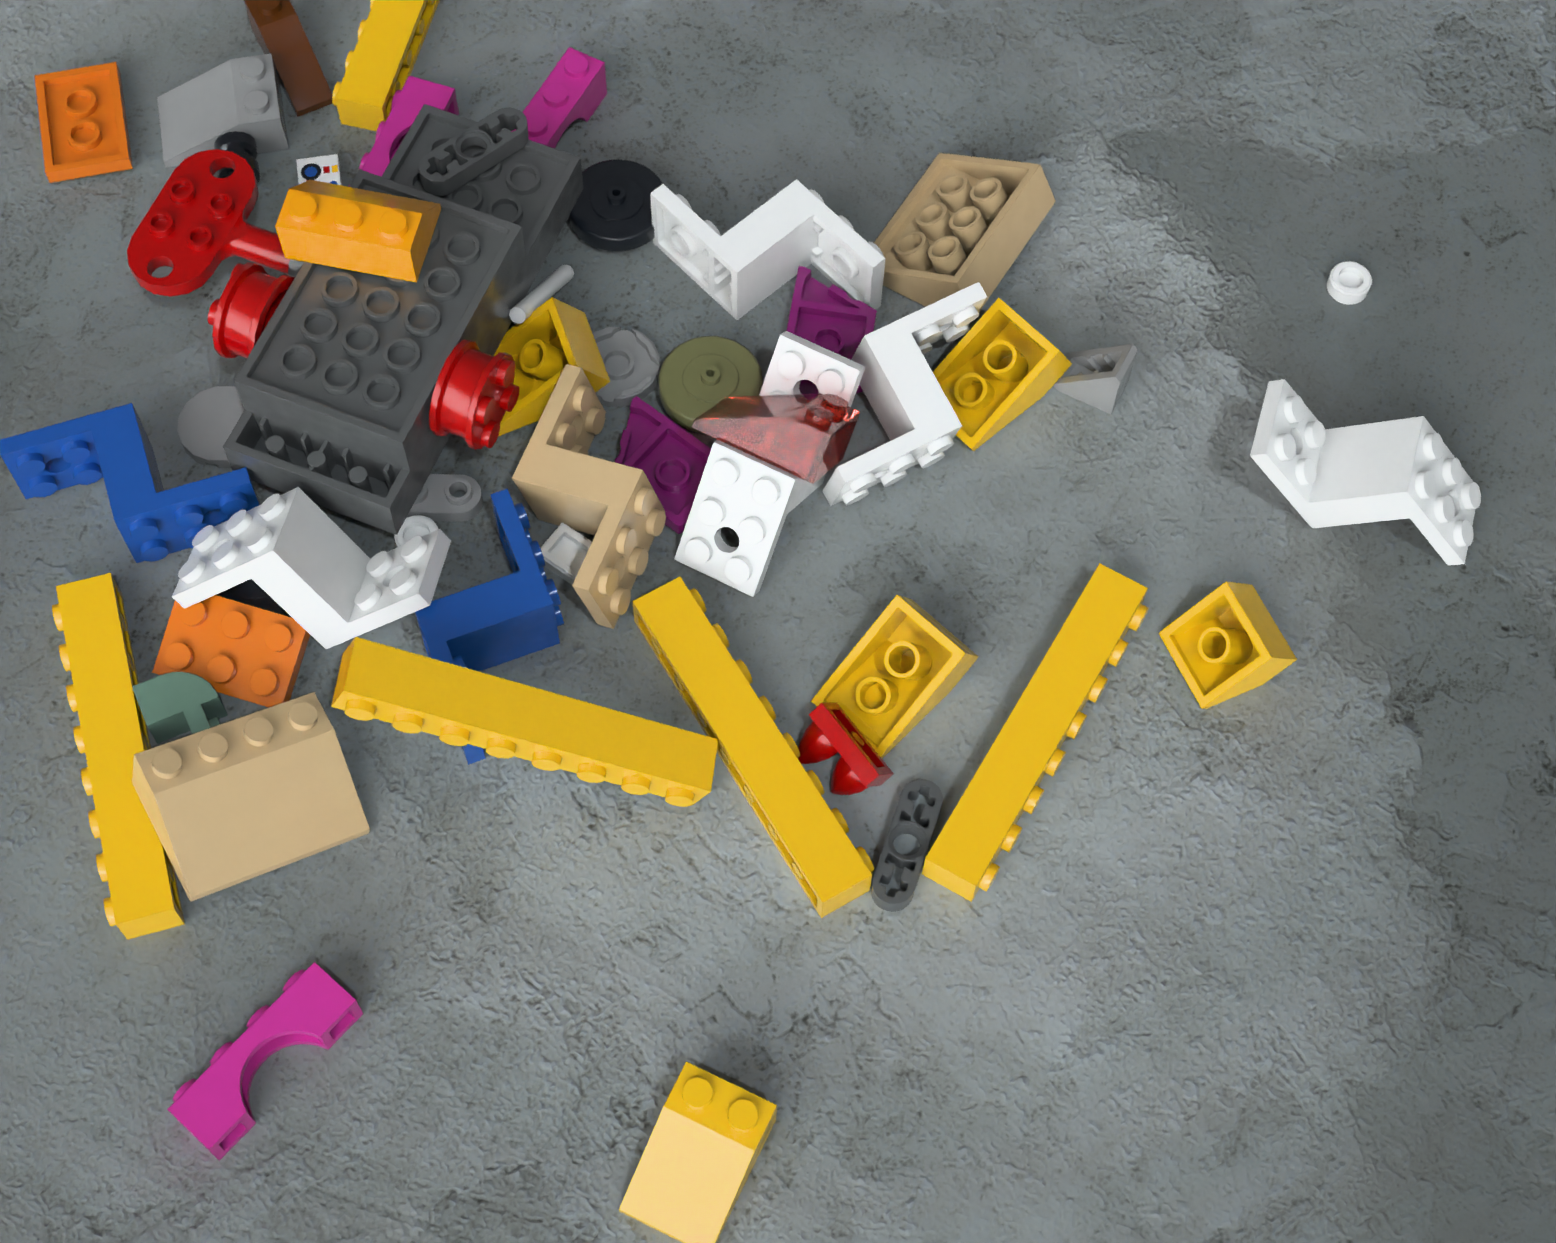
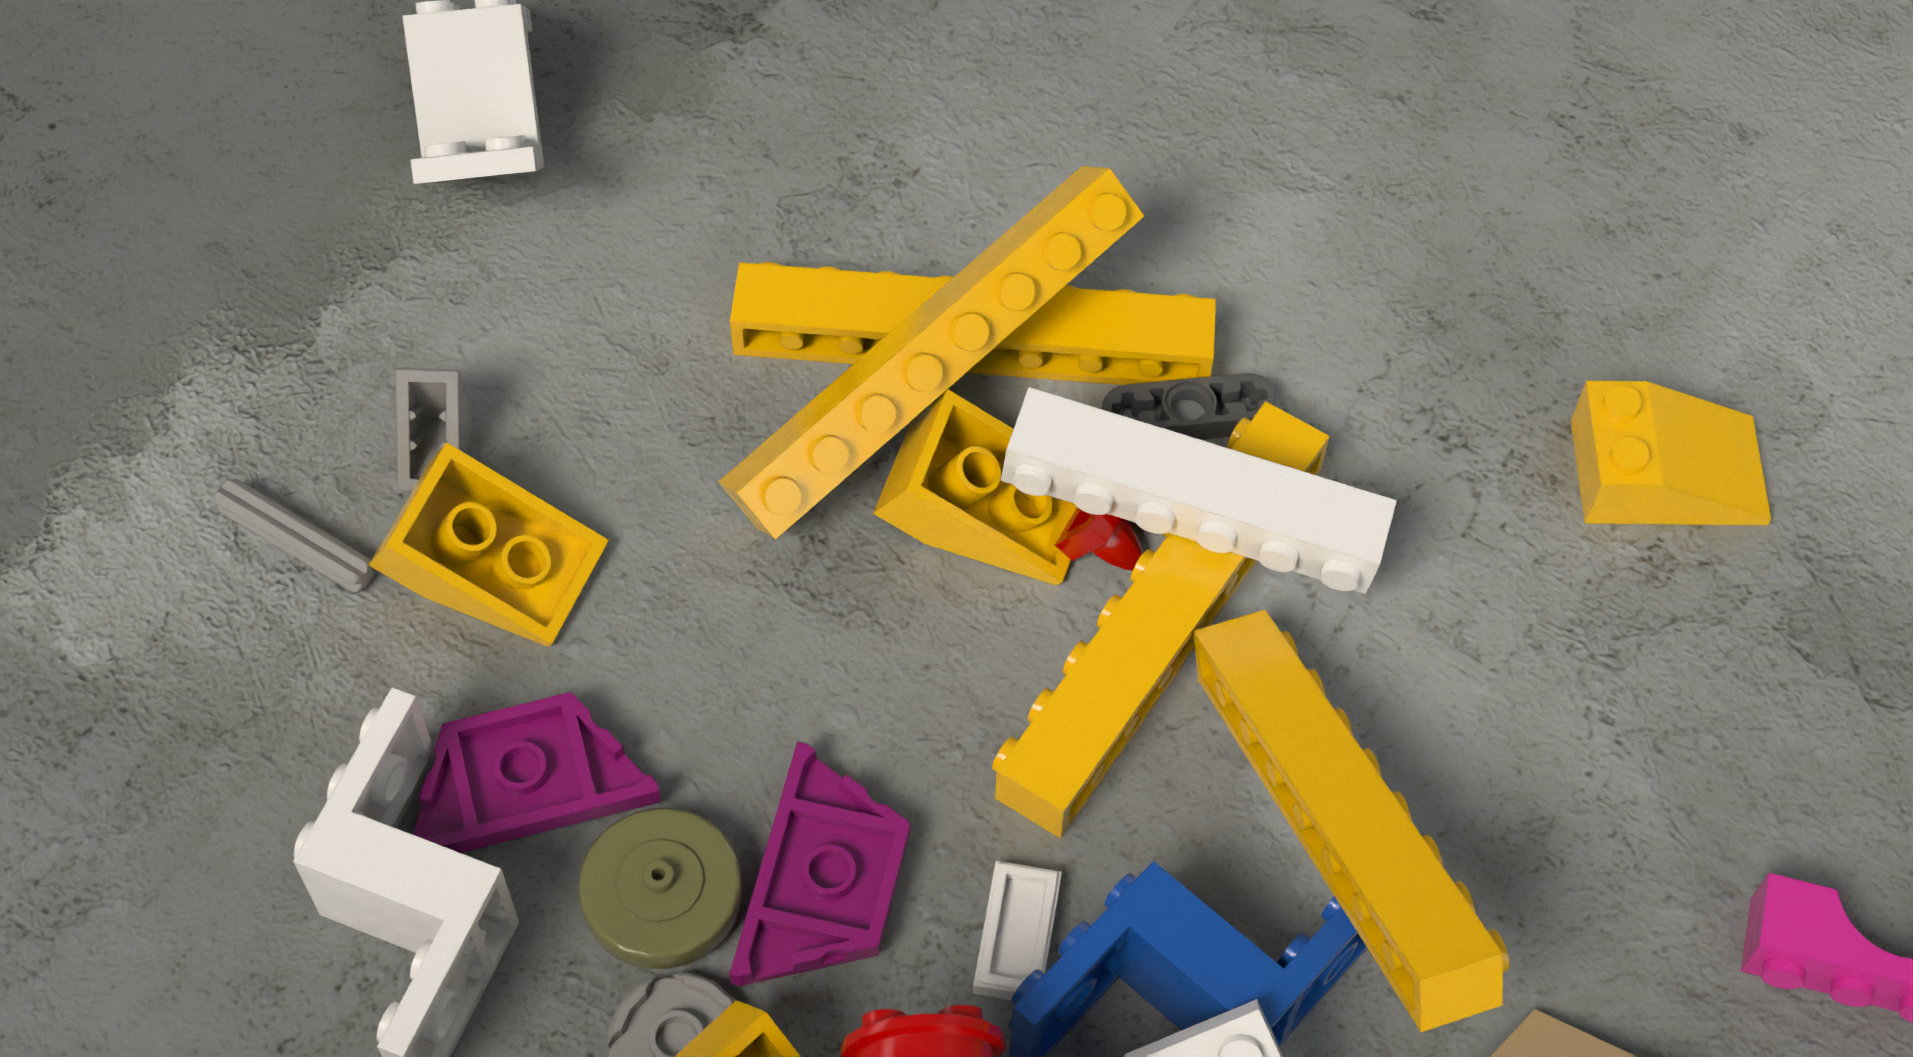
camera: 115 degrees left, 5 degrees down
(590, 496) = (946, 911): tan bracket -> none
(751, 493) = (773, 724): white bracket -> none
(788, 431) = (744, 696): clear red slope -> none
(806, 771) = (1198, 491): none -> white brick
(906, 395) = (590, 605): white bracket -> none
(962, 226) = (247, 681): tan slope -> none
(1007, 667) = (931, 349): none -> yellow brick
(1061, 283) = (294, 535): none -> light grey axle
(1227, 644) = (761, 182): yellow slope -> none
(1349, 282) = (154, 224): white tile -> none

